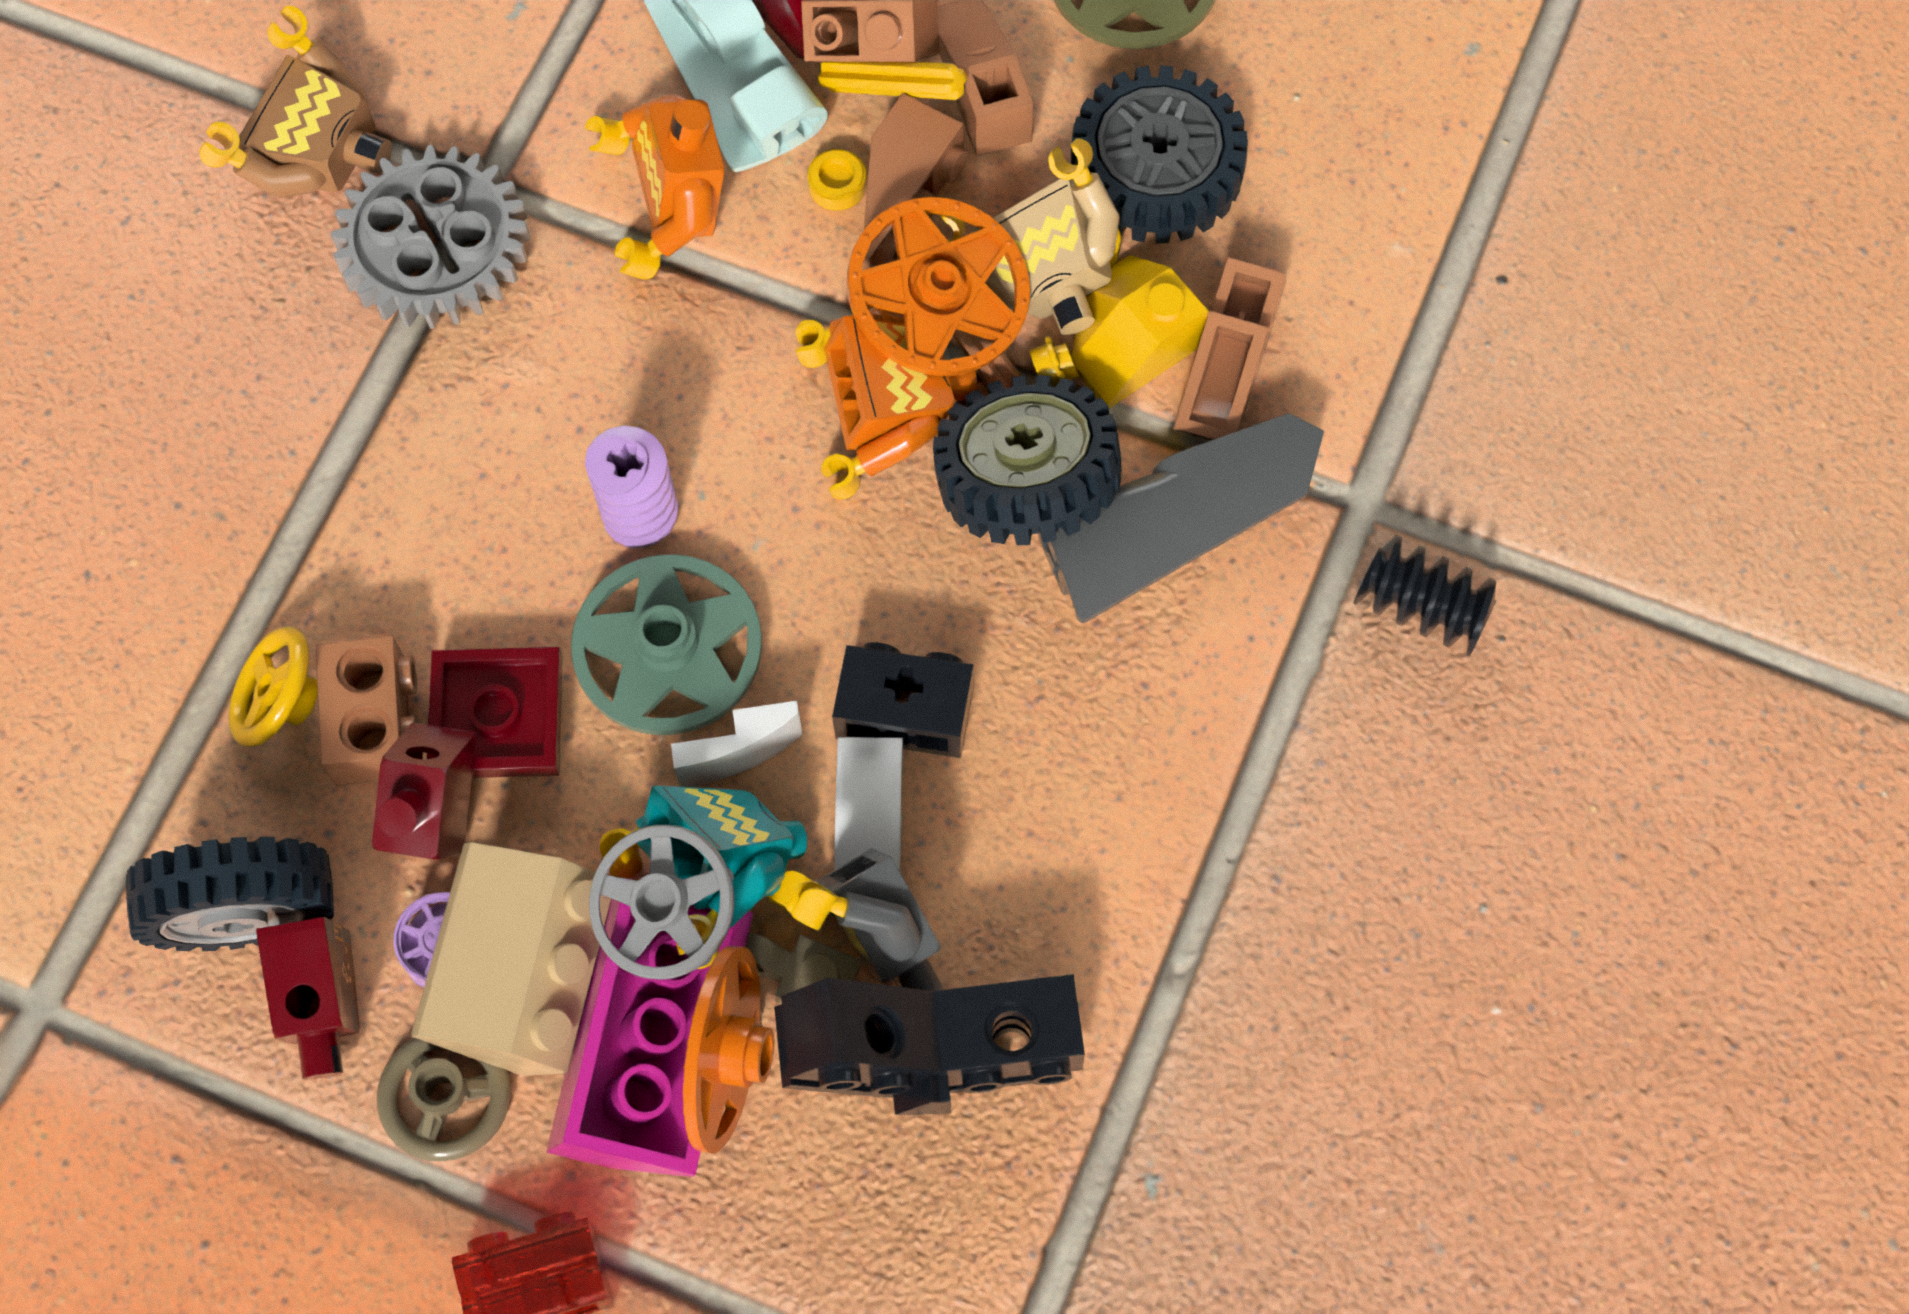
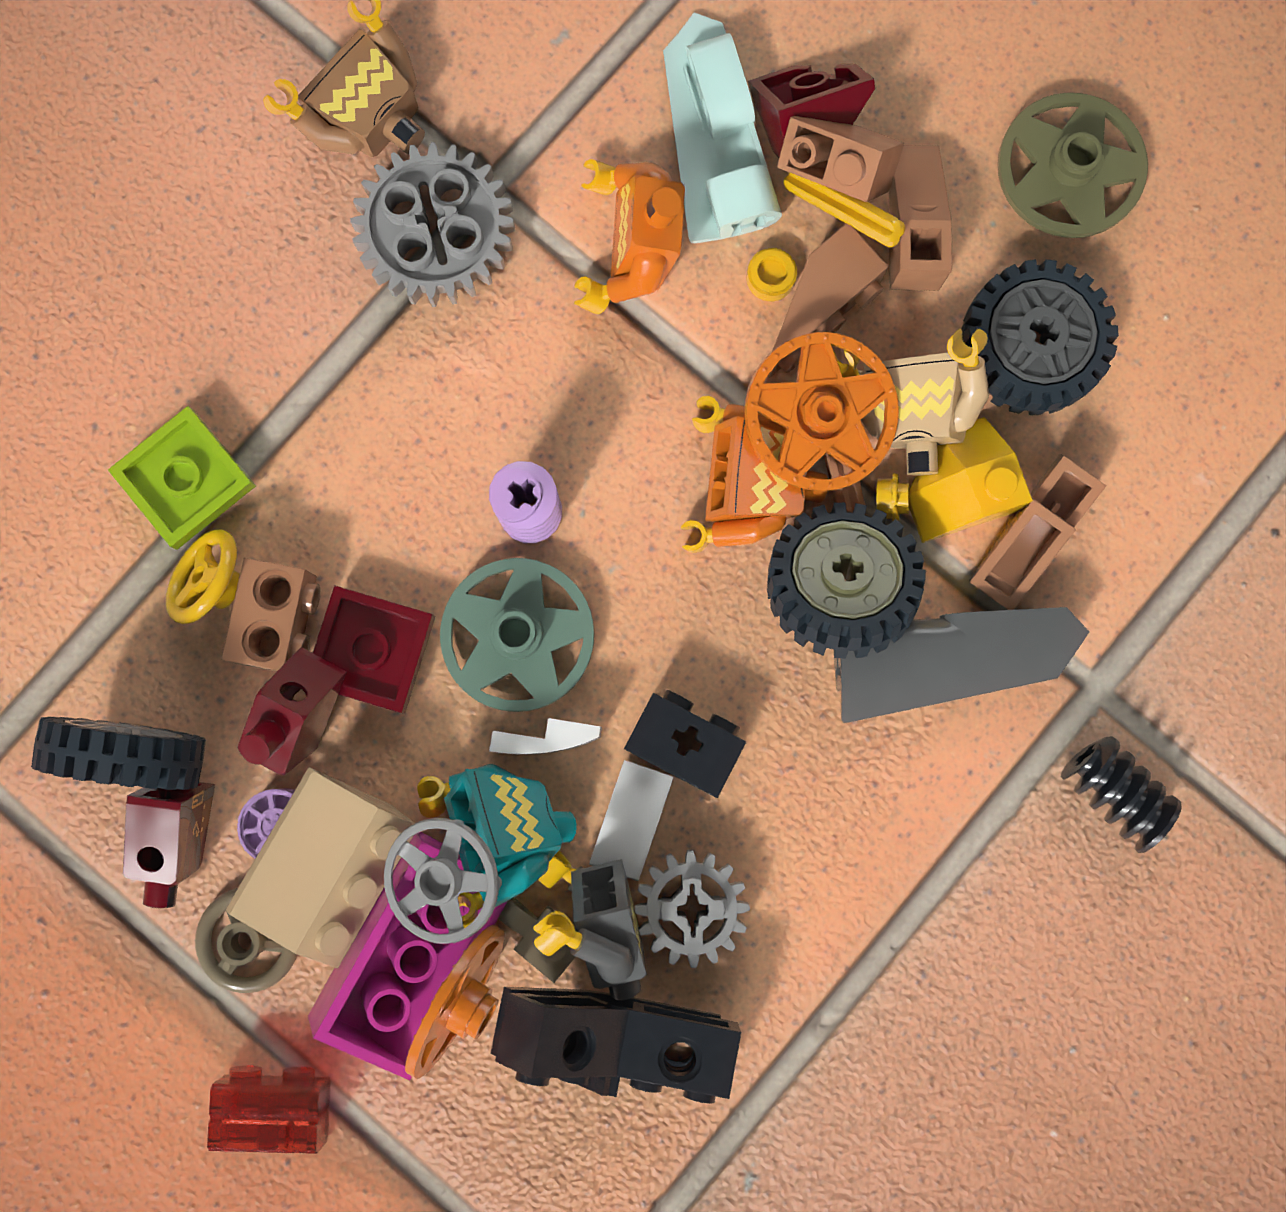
camera: 15 degrees right, 15 degrees up
(212, 592) = (181, 478): none -> lime plate
(996, 867) = (716, 908): none -> light grey gear

